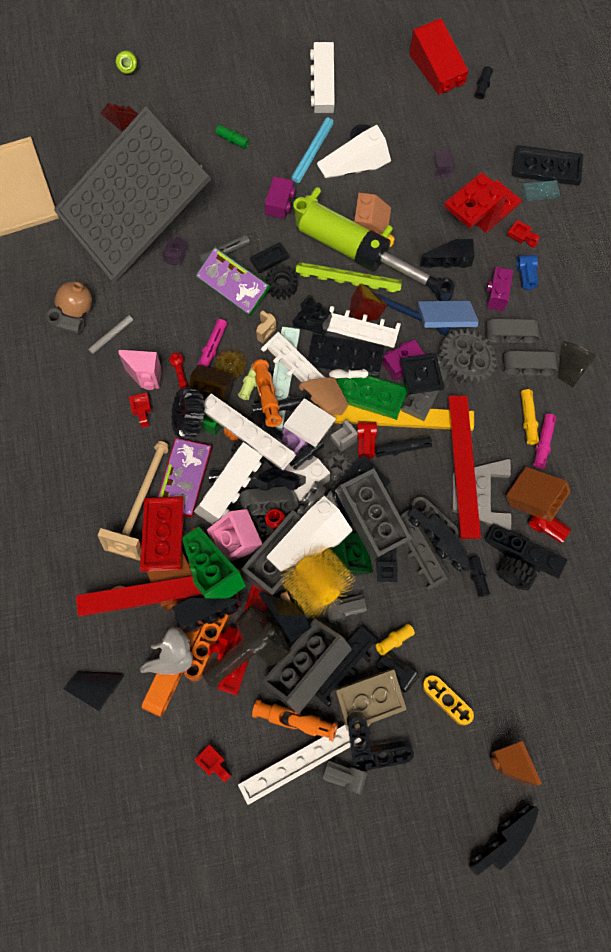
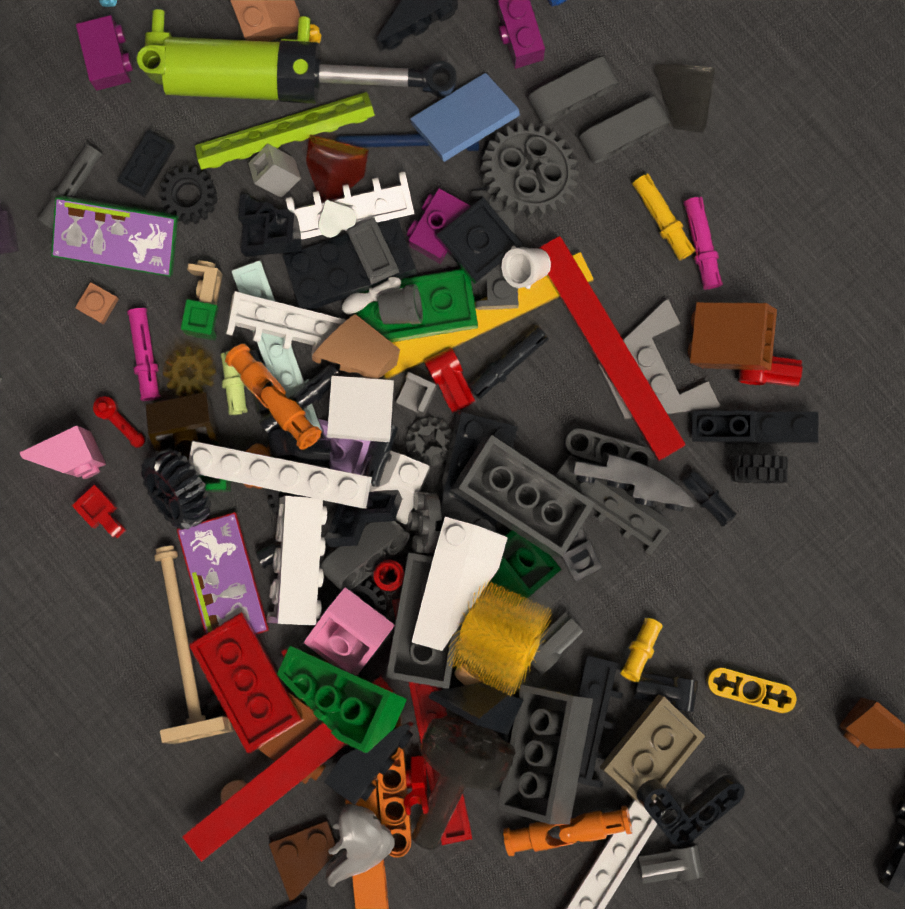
camera: 25 degrees left, 15 degrees up
(135, 650) = (302, 855): none -> reddish brown wing
(204, 309) = (97, 303): none -> nougat plate
(250, 341) = (199, 320): none -> green panel
(332, 291) = (274, 170): none -> light grey panel
(352, 327) = (335, 218): none -> tile
(361, 351) = (372, 251): none -> dark grey tile
(361, 384) = (401, 306): none -> dark grey piece
(440, 398) = (525, 266): none -> white piece

